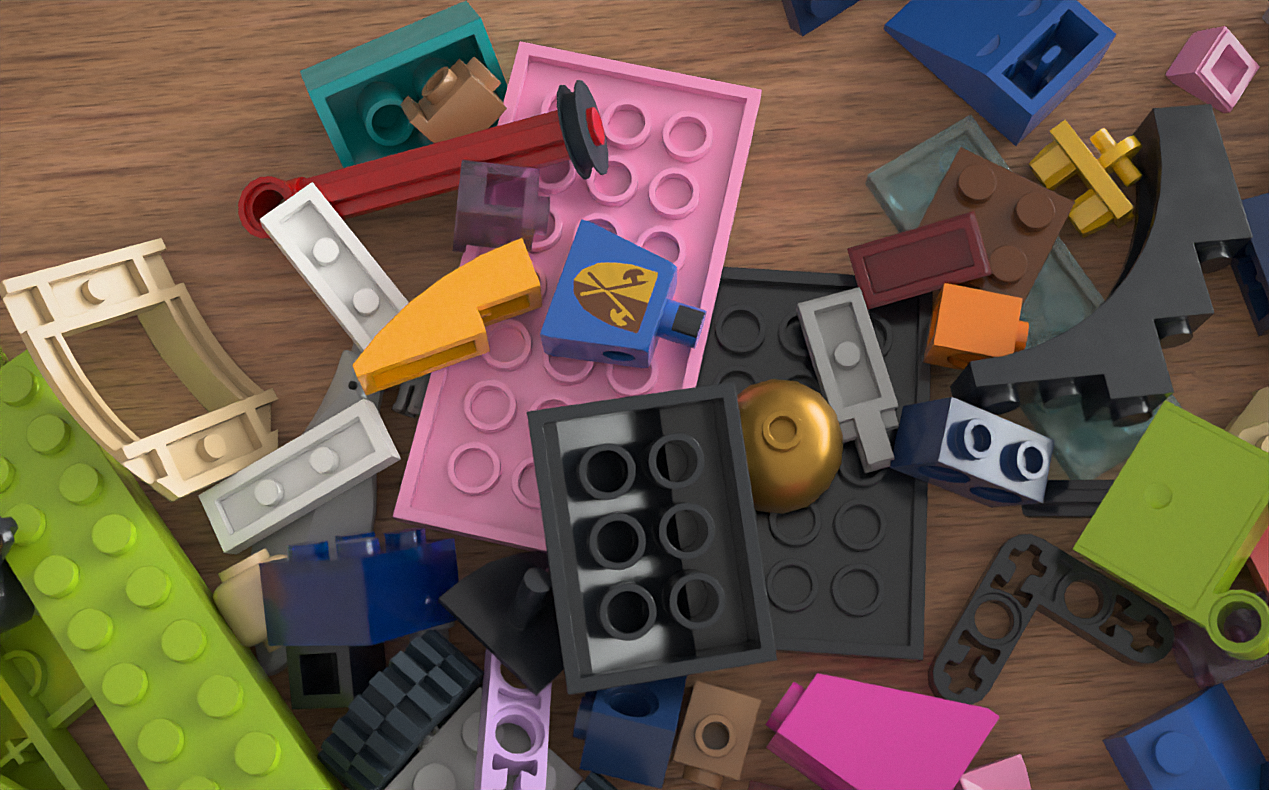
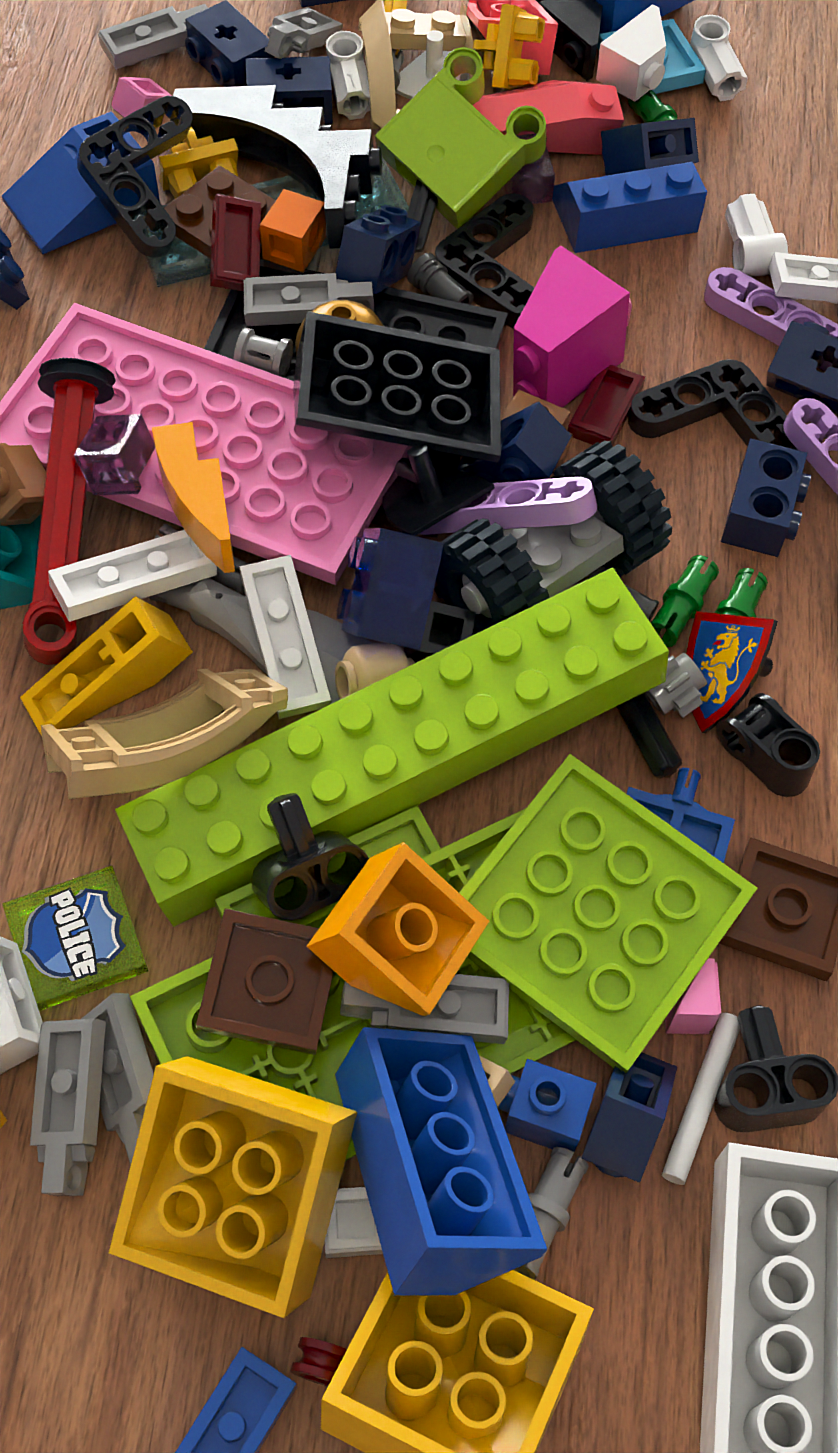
camera: 85 degrees left, 15 degrees down
(250, 290) = (109, 667): none -> yellow slope
(616, 303) = (216, 393): torso -> none
(738, 344) = (279, 352): none -> light grey bush
(969, 545) = (434, 280): none -> dark grey pin
(987, 78) = (121, 170): none -> black beam

